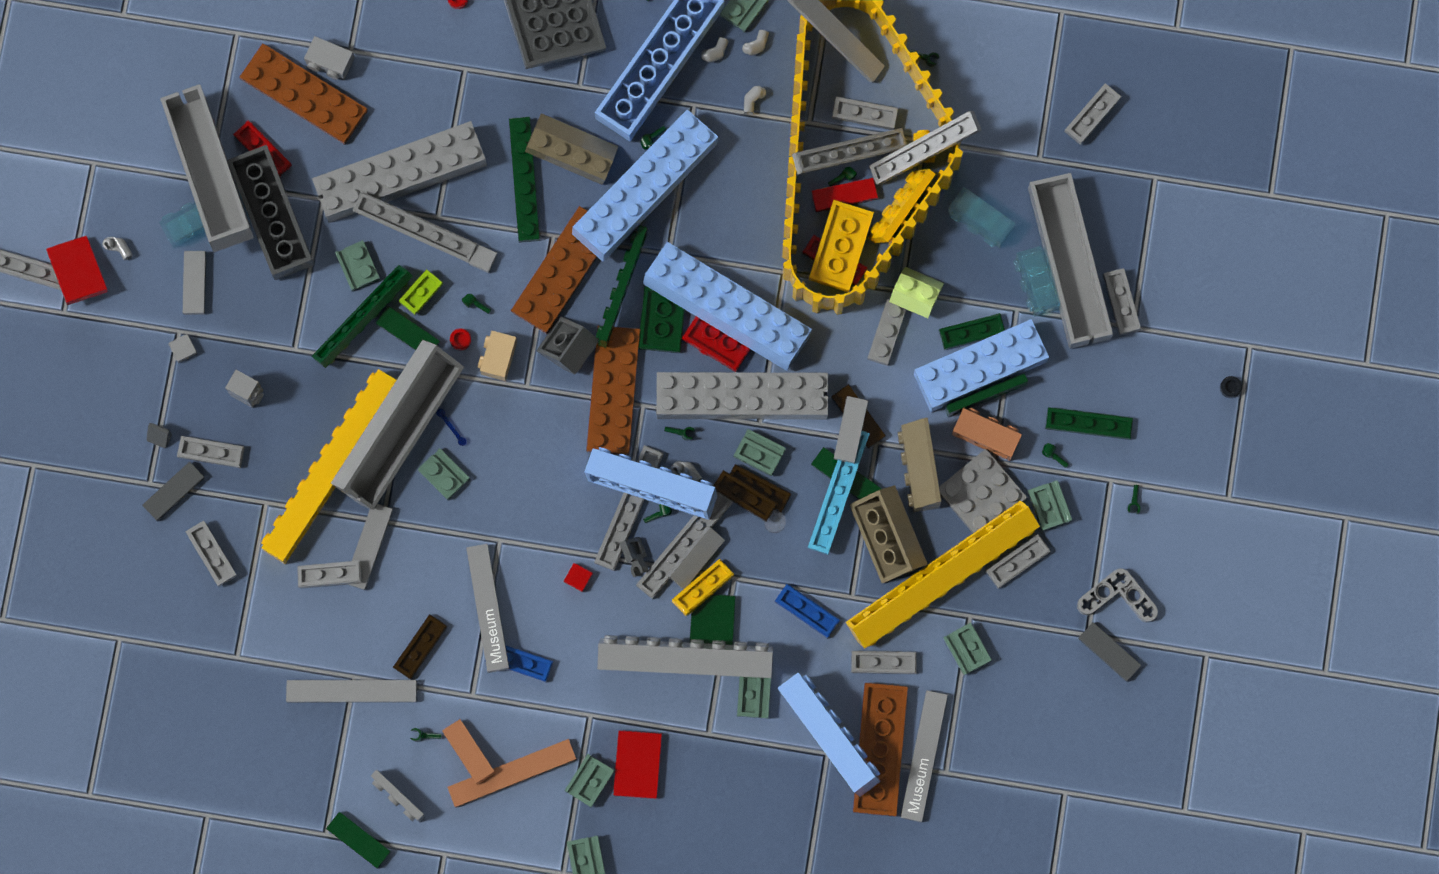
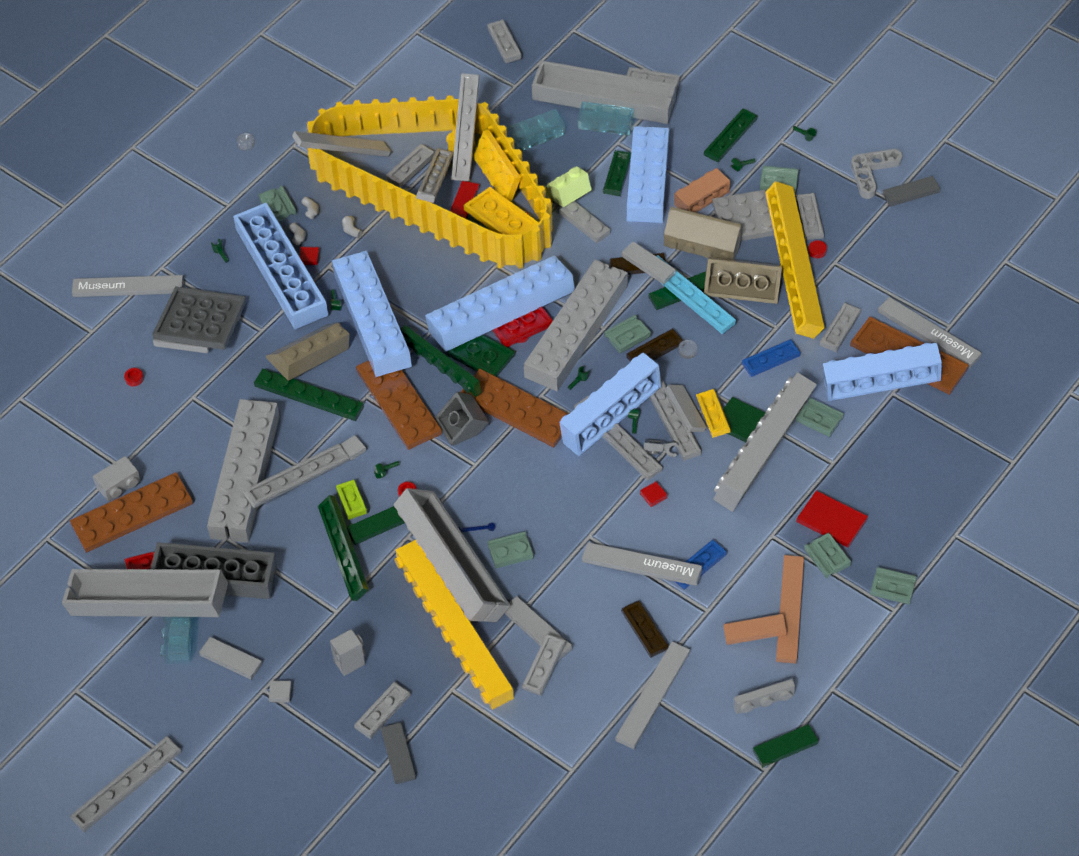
camera: 60 degrees left, 25 degrees down
(76, 270) = (159, 738): red tile -> none
(119, 245) = (159, 700): light grey arm -> none
(158, 435) = (342, 741): dark grey slope -> none
(211, 553) = (470, 746): light grey plate -> none
(357, 265) = (298, 535): sand green plate -> none
(424, 735) = (721, 658): dark green hand -> none
(498, 355) = (438, 468): tan brick -> none
(694, 78) = (309, 255): none -> red tile
(745, 496) = (664, 351): dark brown tile -> none
(848, 172) = (448, 194): dark green hand -> none
(967, 649) = (860, 271): sand green plate -> none
(976, 590) = (817, 249): none -> red tile
(986, 395) = (672, 179): dark green tile -> none
(1230, 387) = (754, 48): black tile -> none

